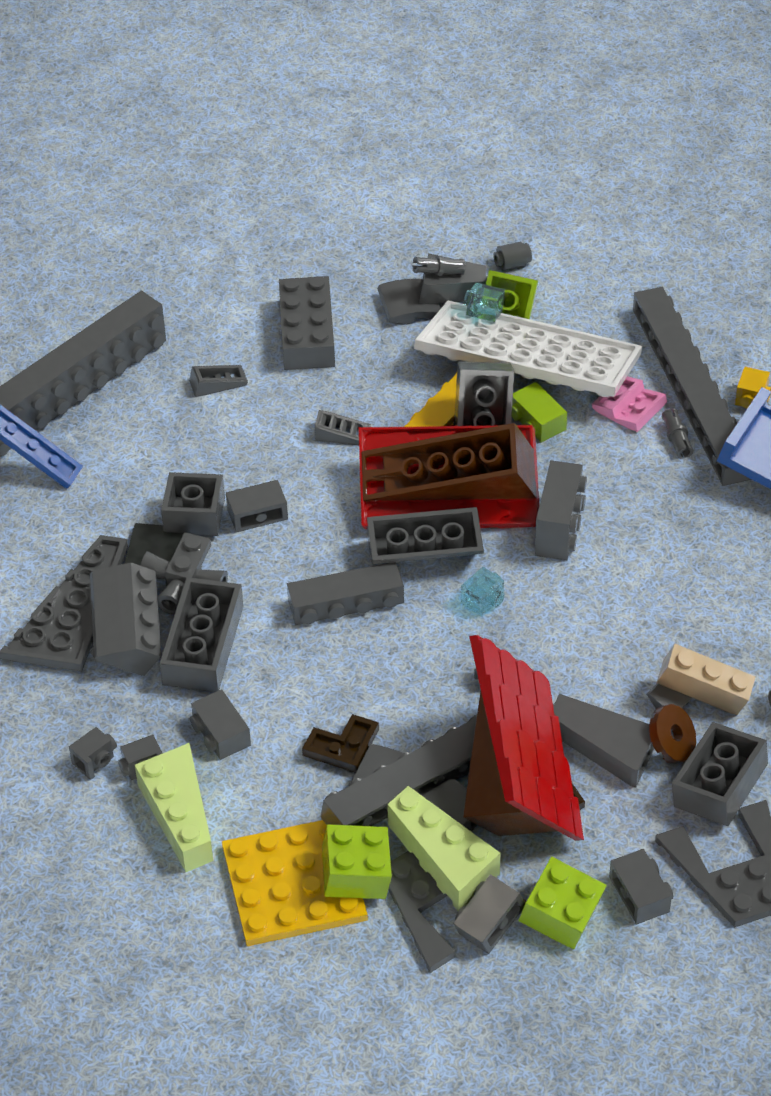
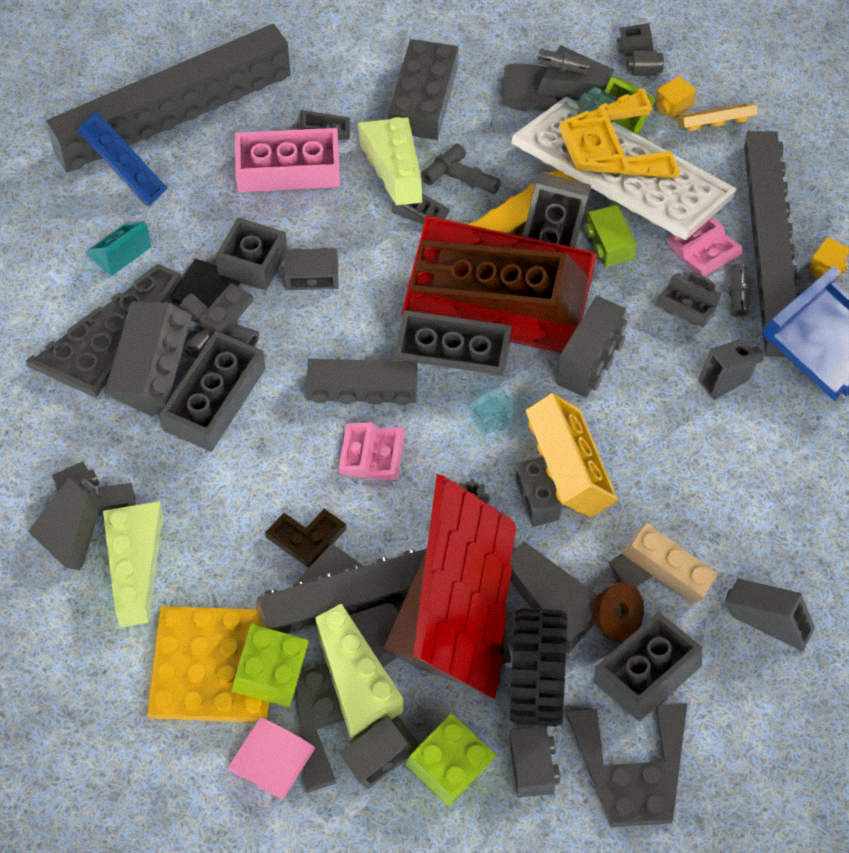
camera: 15 degrees right, 10 degrees up
(56, 528) = (121, 246): none -> teal slope
(102, 784) = (69, 523): none -> dark grey slope
(196, 413) = (287, 160): none -> bright pink brick
(220, 724) = (200, 487): dark grey brick -> none
(303, 387) = (393, 155): none -> yellowish green wedge
(350, 385) = (442, 164): none -> dark grey pin
(378, 655) = (371, 451): none -> bright pink slope
(385, 390) = (474, 177): none -> dark grey pin
(385, 947) = (271, 758): none -> bright pink slope
(495, 235) = (635, 39): none -> dark grey brick
(502, 334) = (597, 149): none -> yellow wing
(553, 279) = (675, 97): none -> yellow brick
(554, 650) = (537, 492): none -> dark grey brick
(576, 609) = (571, 456): none -> yellow brick
(598, 288) = (717, 117): none -> yellow plate
(621, 793) = (538, 667): none -> black tyre
(634, 450) = (690, 298): none -> dark grey slope
(694, 500) = (729, 367): none -> dark grey torso

